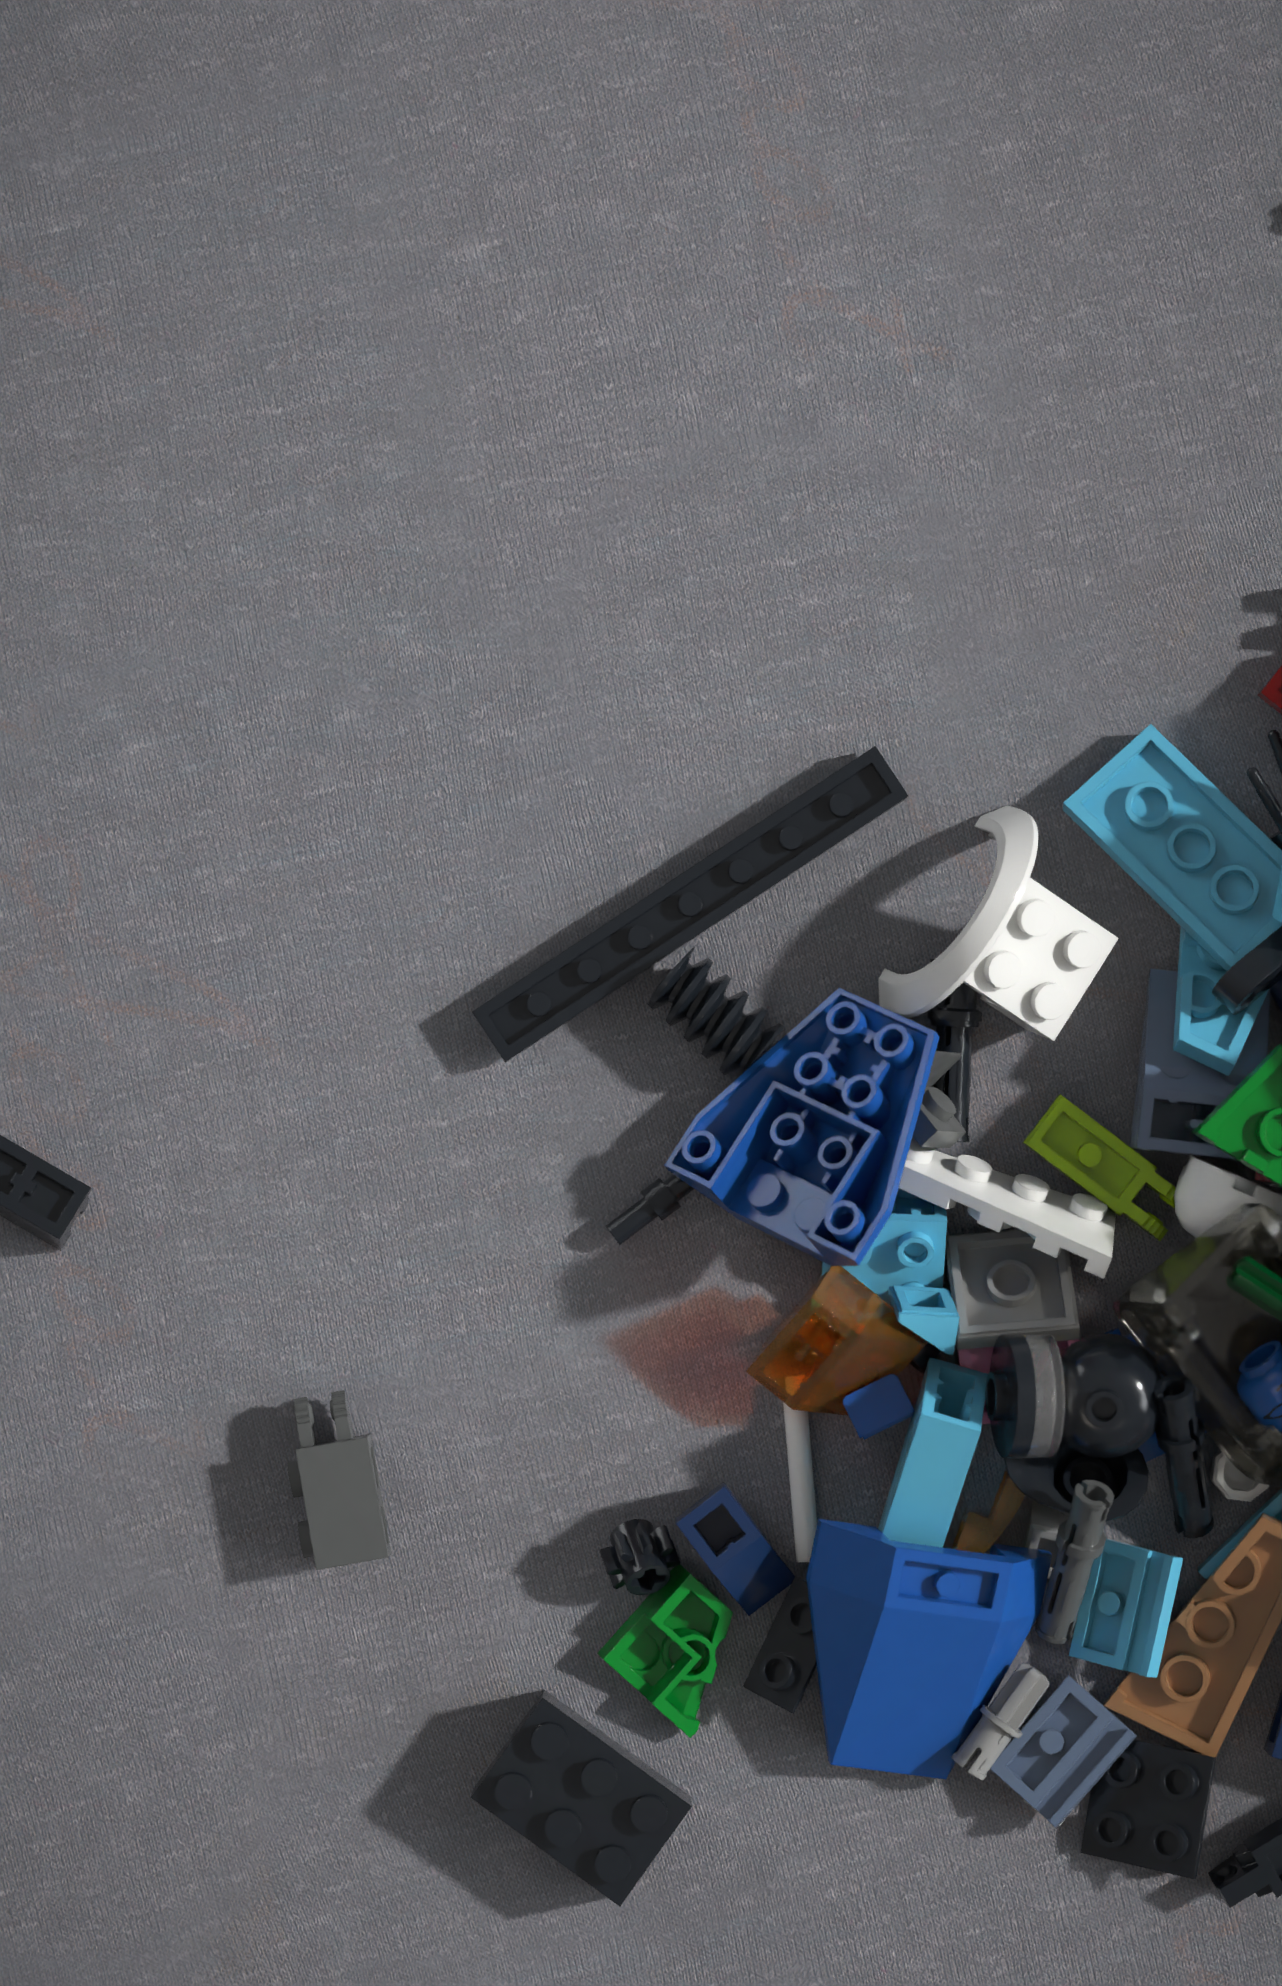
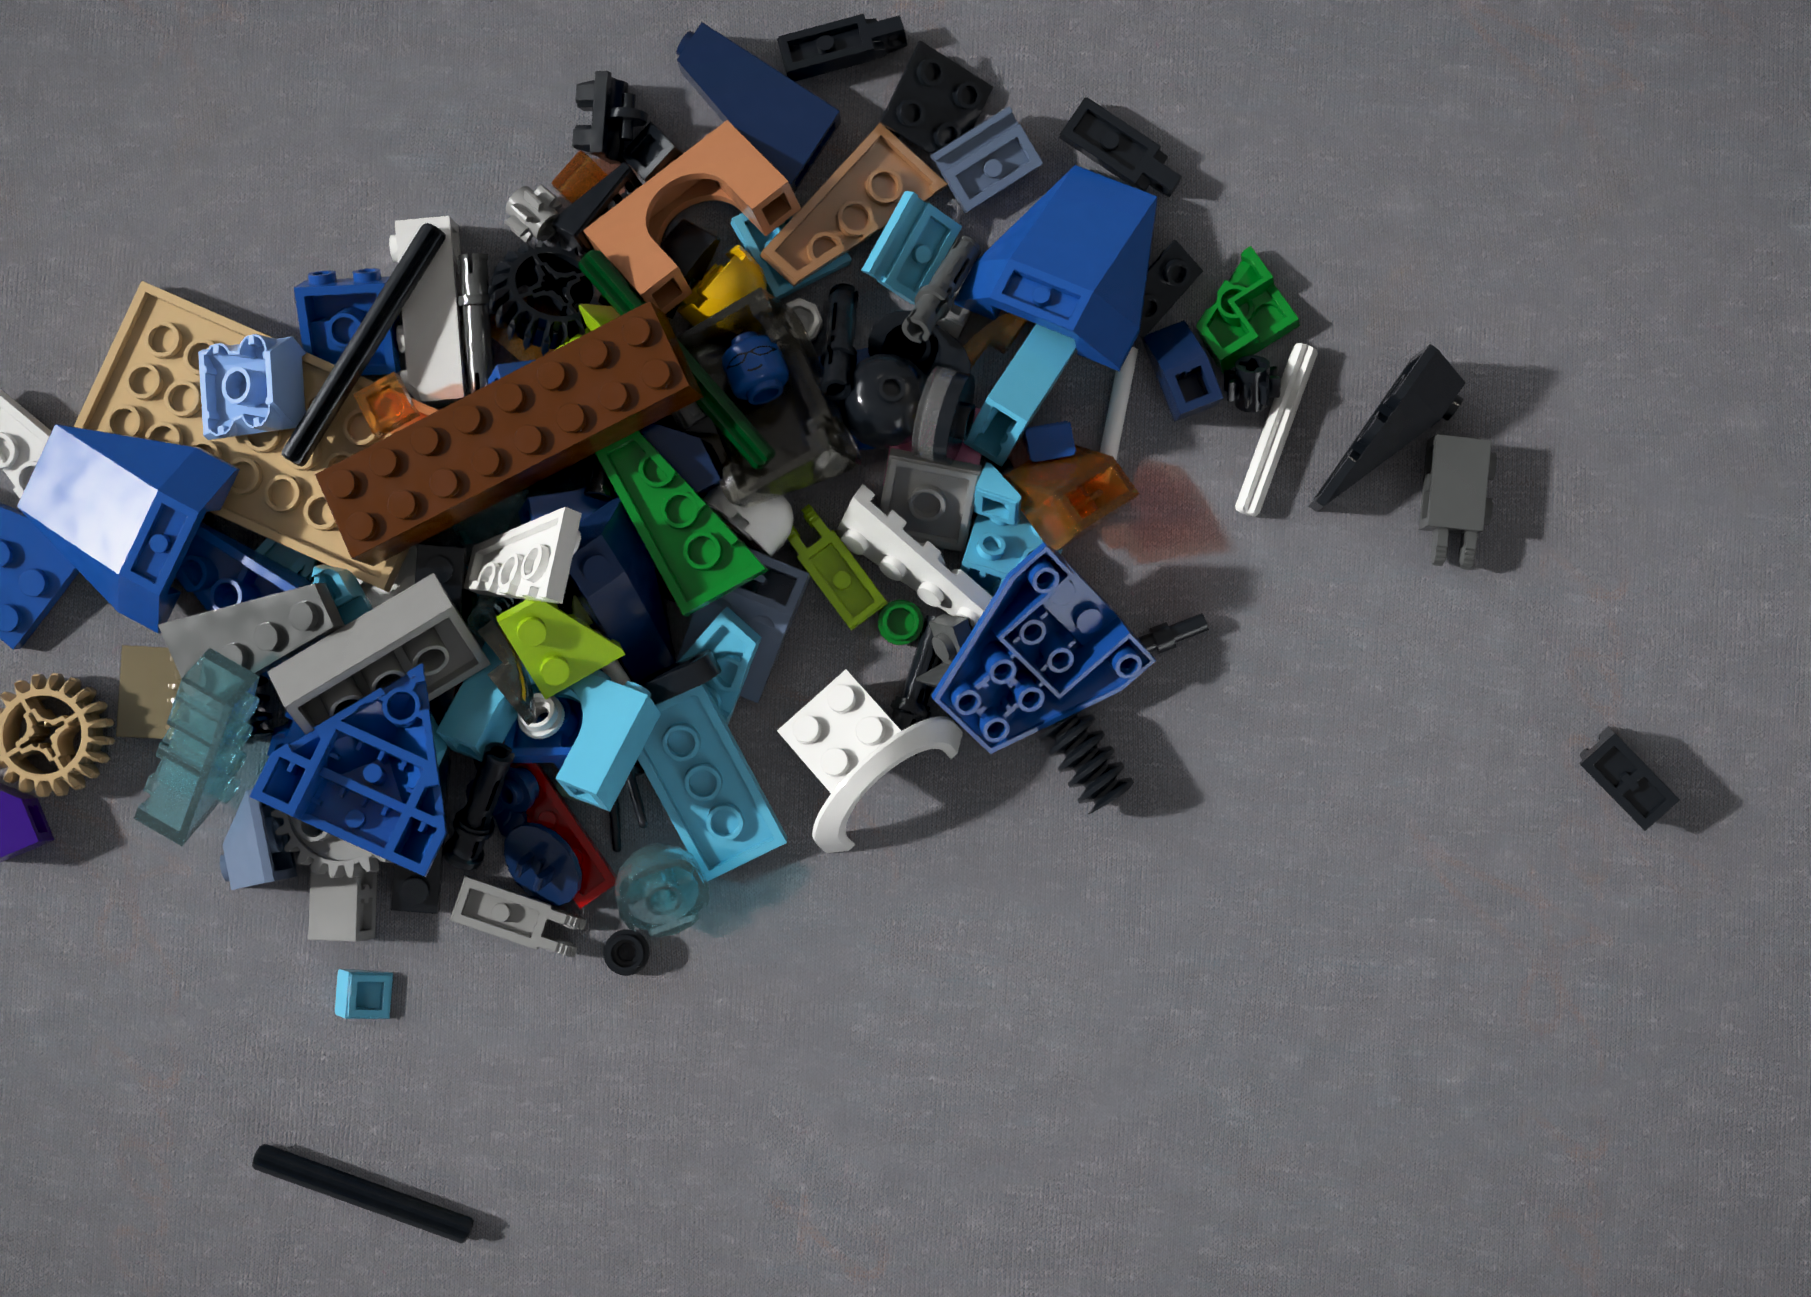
camera: 170 degrees left, 0 degrees up
(428, 1582) = (1413, 404): none -> black wedge
(582, 1798) = (1342, 224): black brick -> none
(590, 1509) = (1276, 430): none -> white axle
(690, 904) = (1080, 846): black plate -> none
(896, 1816) = (1119, 148): none -> black hinge
(999, 1123) = (900, 622): none -> green plate
(1002, 1719) = (1024, 193): light grey axle -> none
(1204, 697) = (660, 890): none -> clear light blue cylinder
(1236, 595) = (614, 960): none -> black plate

